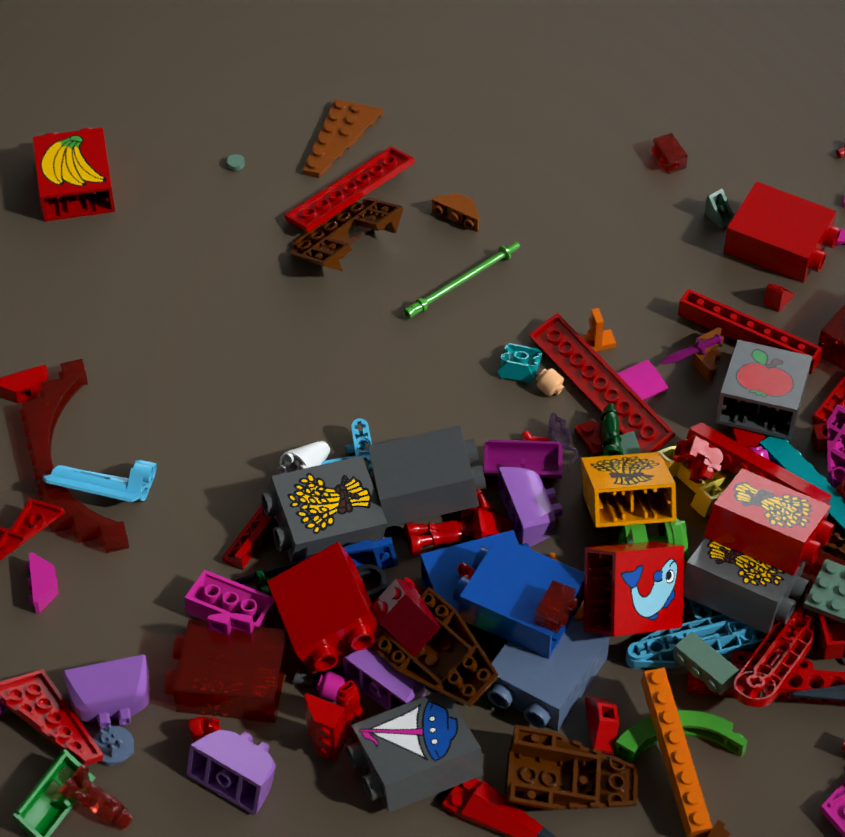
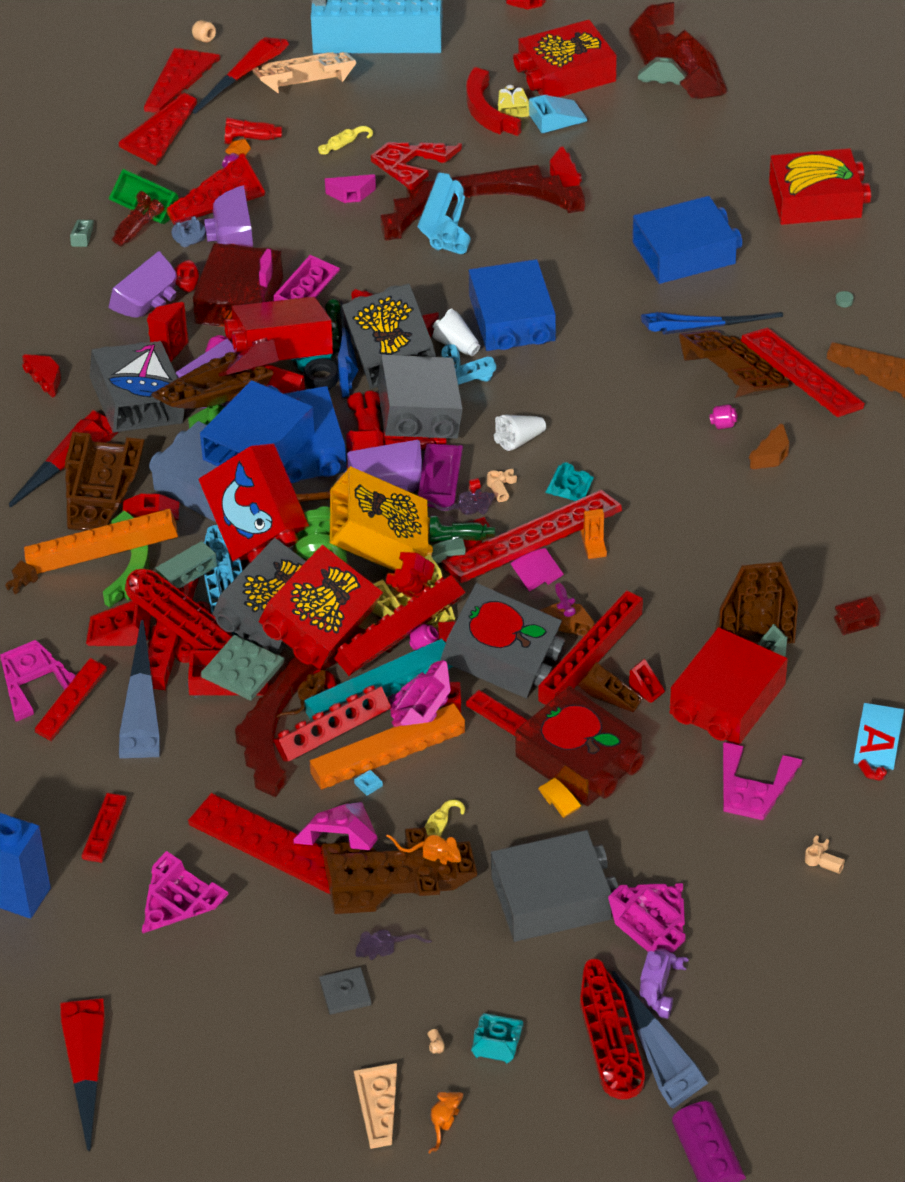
camera: 95 degrees right, 5 degrees down
(155, 274) = (685, 239): none -> blue brick
(263, 412) = (512, 305): none -> blue brick
(278, 283) = (678, 323): none -> blue plate
(349, 698) = (183, 343): red piece -> none
(417, 245) = (723, 416): none -> dark pink head
(421, 304) = (646, 418): bright green bar -> none
(454, 401) = (516, 430): none -> white cone
(519, 421) = (496, 482): none -> light nougat bar
(550, 382) = (538, 501): light nougat head -> none
(555, 606) = (223, 430): clear red brick -> none
(705, 199) = (758, 600): none -> reddish brown wedge
(782, 732) = (118, 626): none -> red slope
(792, 317) = (608, 688): none -> reddish brown slope
(810, 140) = (879, 735): none -> medium azure slope

